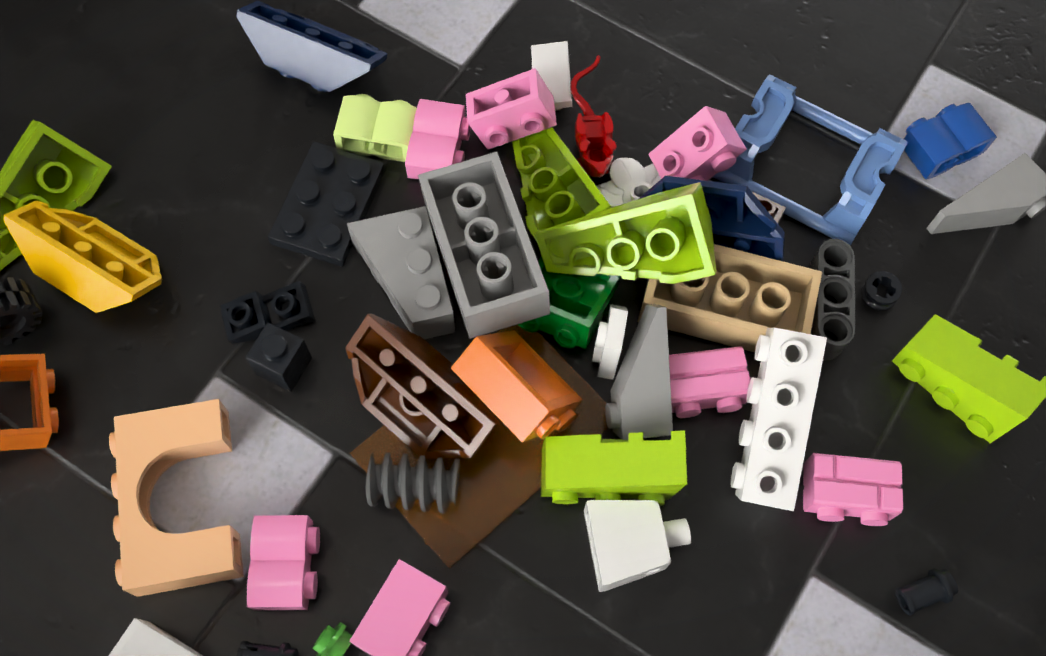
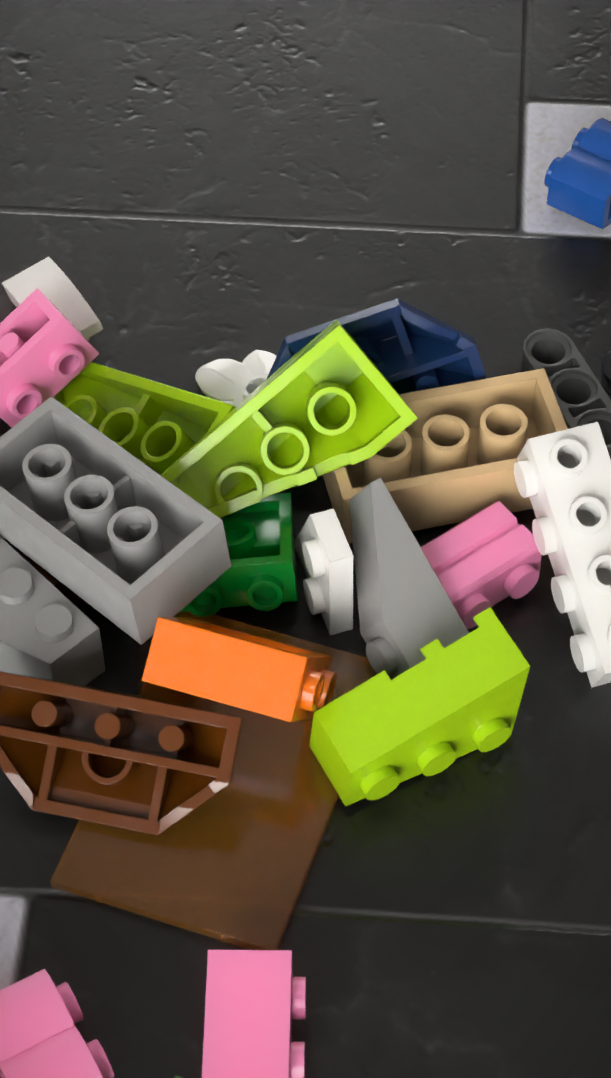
camera: 25 degrees left, 15 degrees down
(412, 483) = (169, 857): dark grey piece -> none
(592, 132) = (152, 348): red animal -> none
(630, 539) = (492, 795): white torso -> none
(699, 147) = (301, 293): bright pink brick -> none
(860, 183) = (526, 252): medium blue piece -> none

